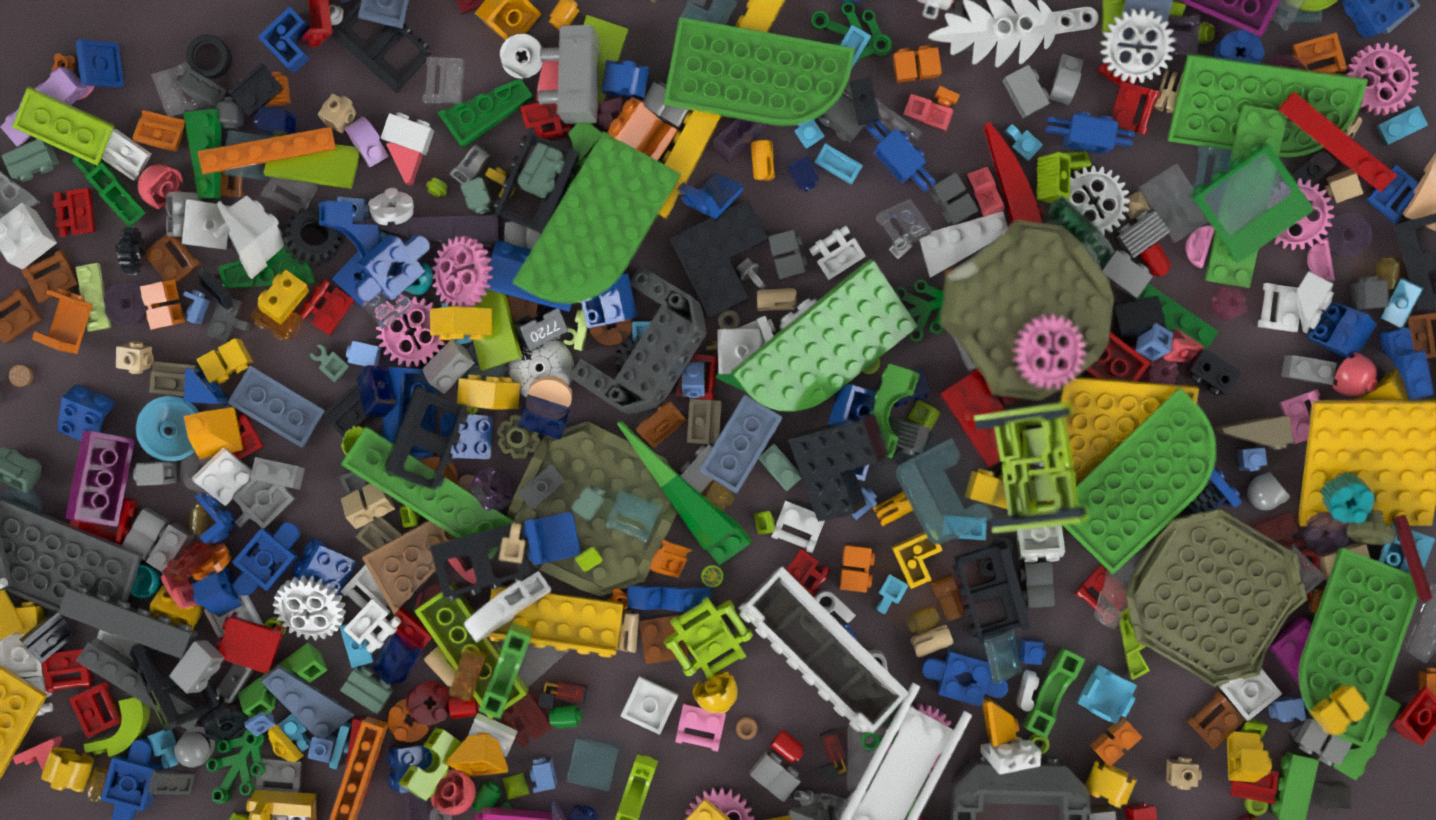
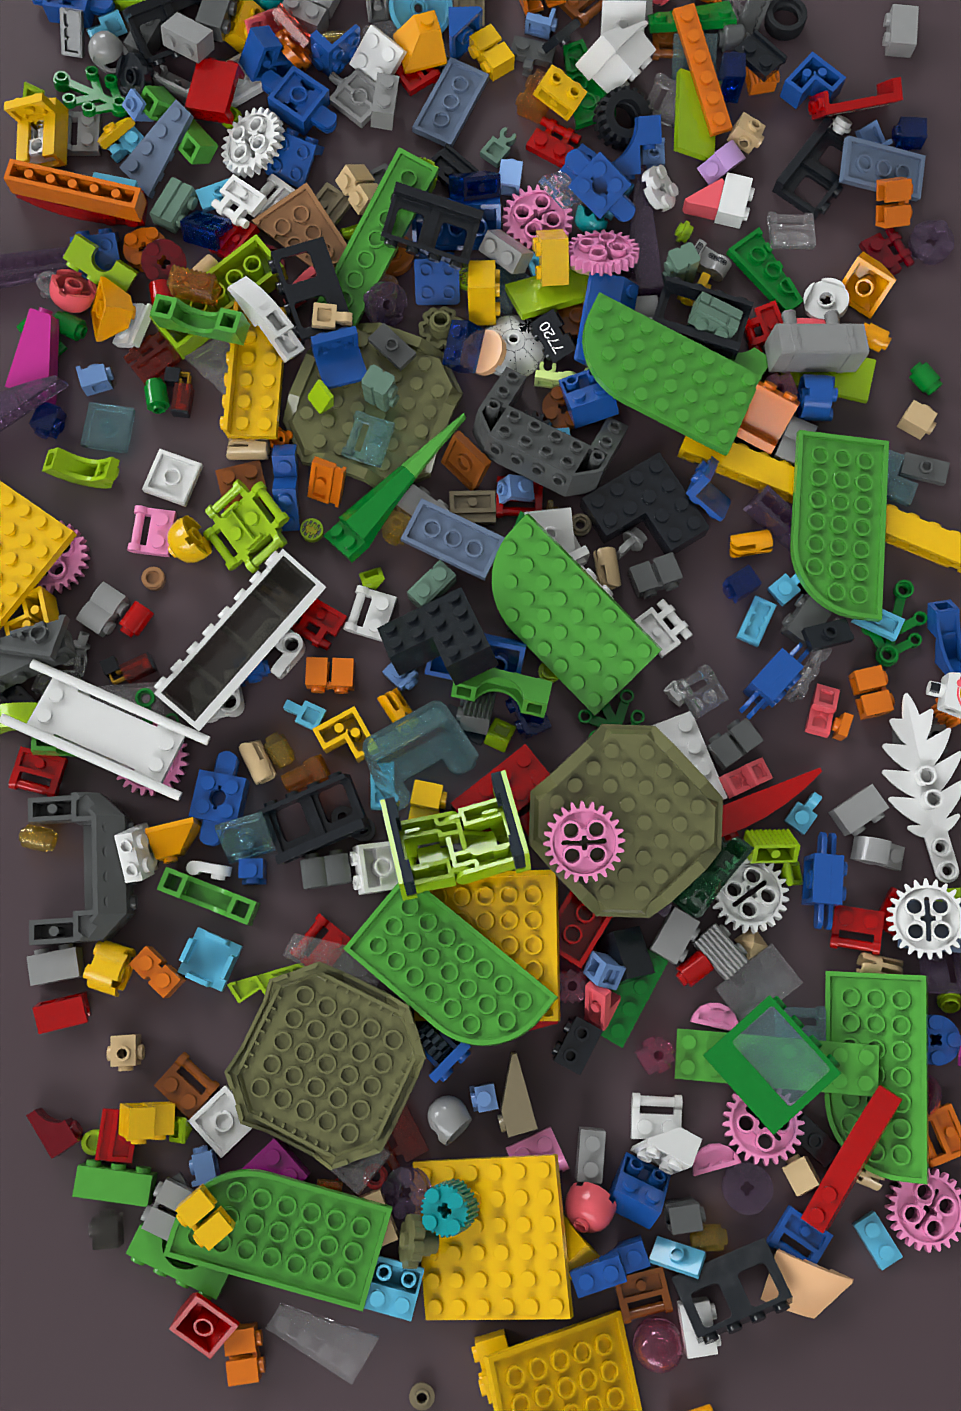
camera: 90 degrees right, 10 degrees down
(321, 748) = (112, 163): medium blue bracket -> none
(515, 786) = (82, 355): lime slope -> none
(1045, 742) = (143, 888): lime plate -> none
(1412, 558) = (386, 1293): dark red axle -> none

